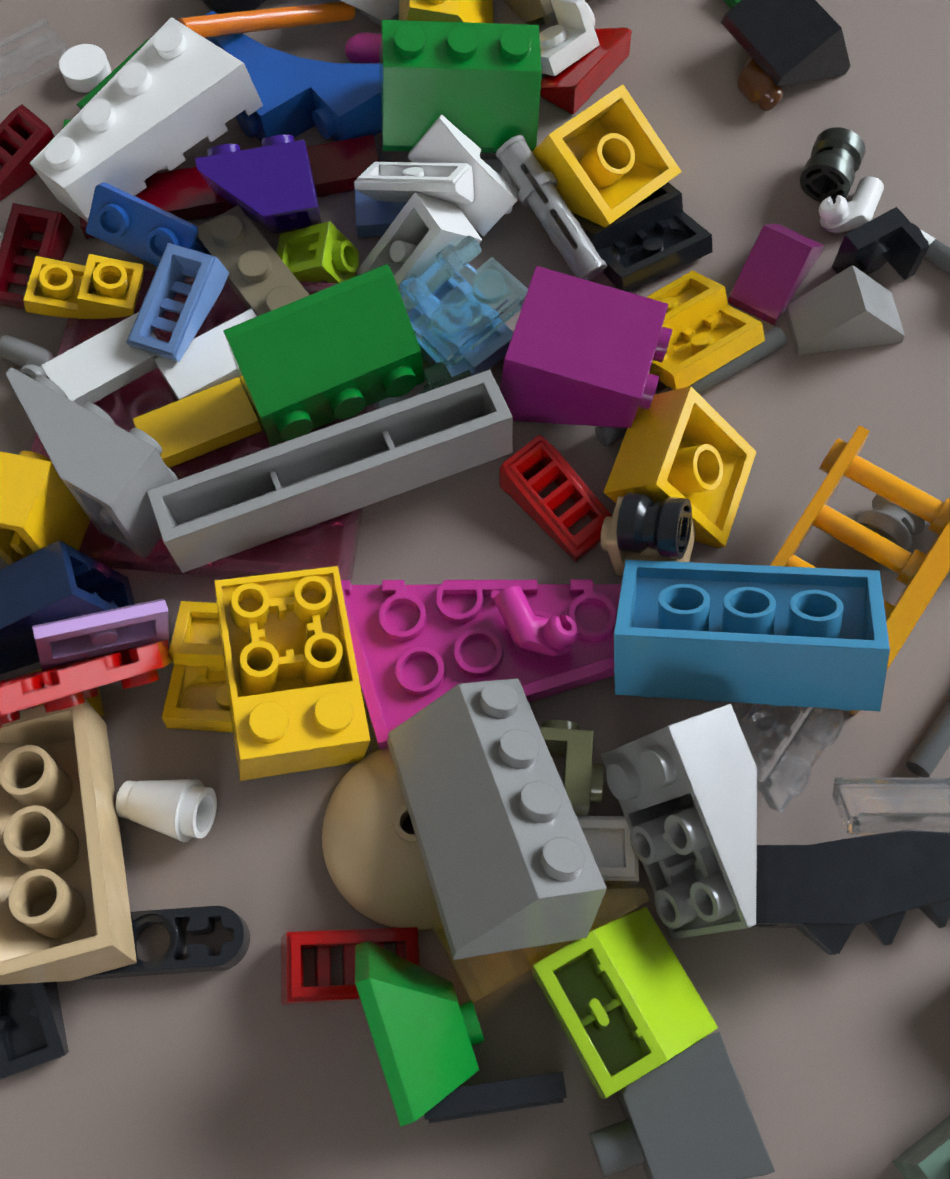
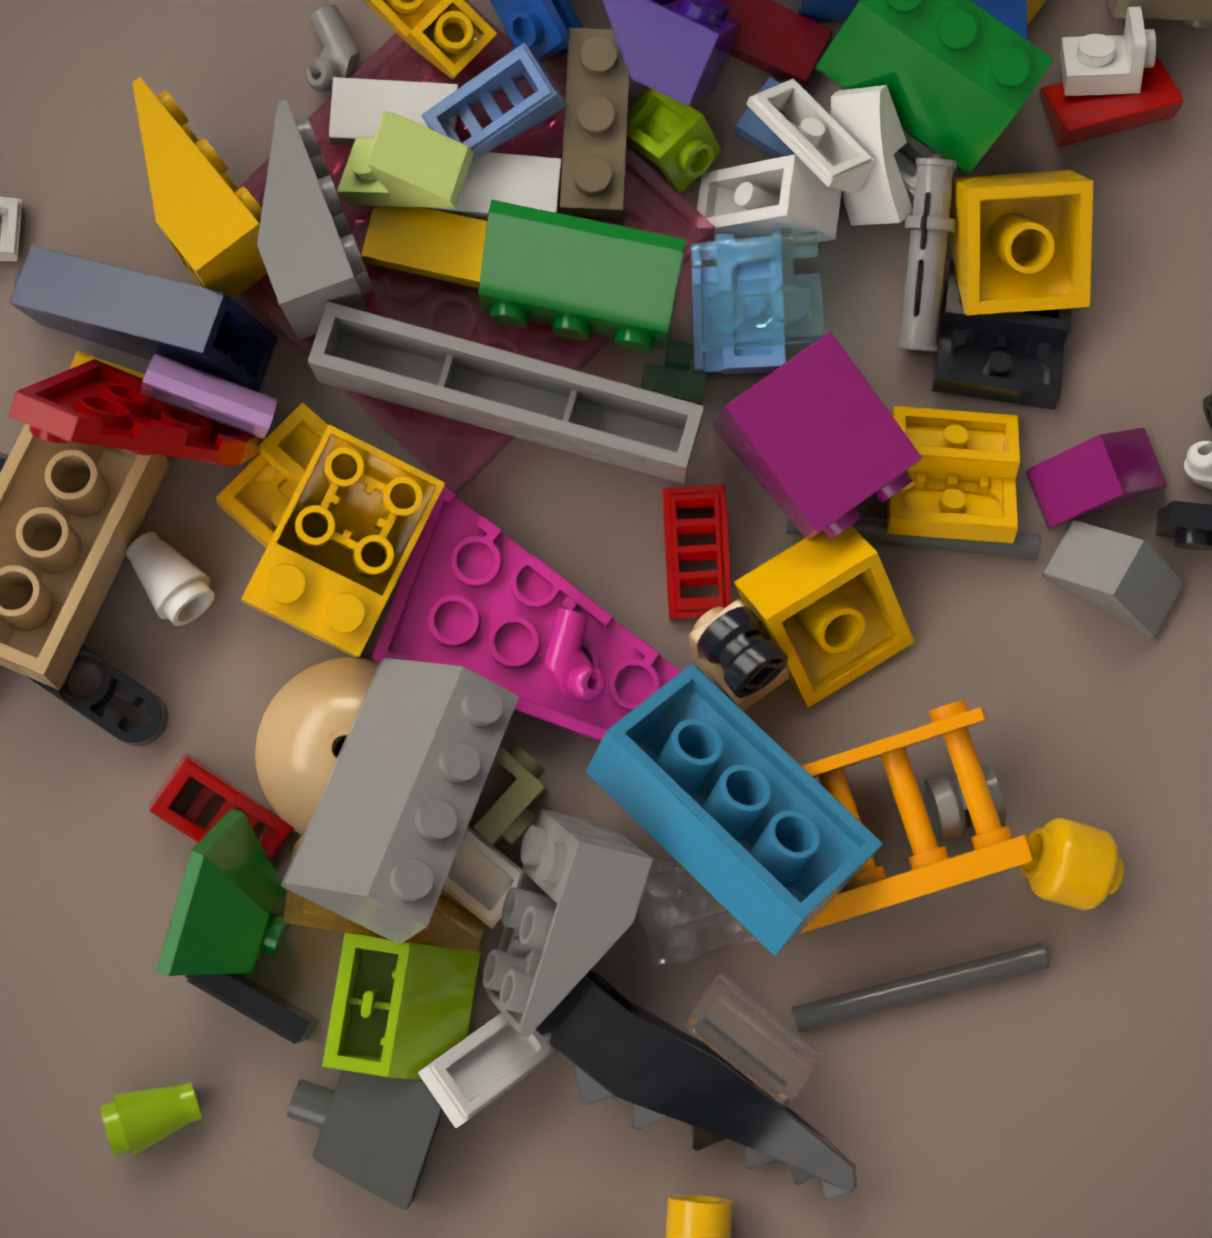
camera: 35 degrees right, 15 degrees up
(141, 373) = (405, 167): none -> yellowish green slope
(731, 992) = (483, 1068): none -> white tile

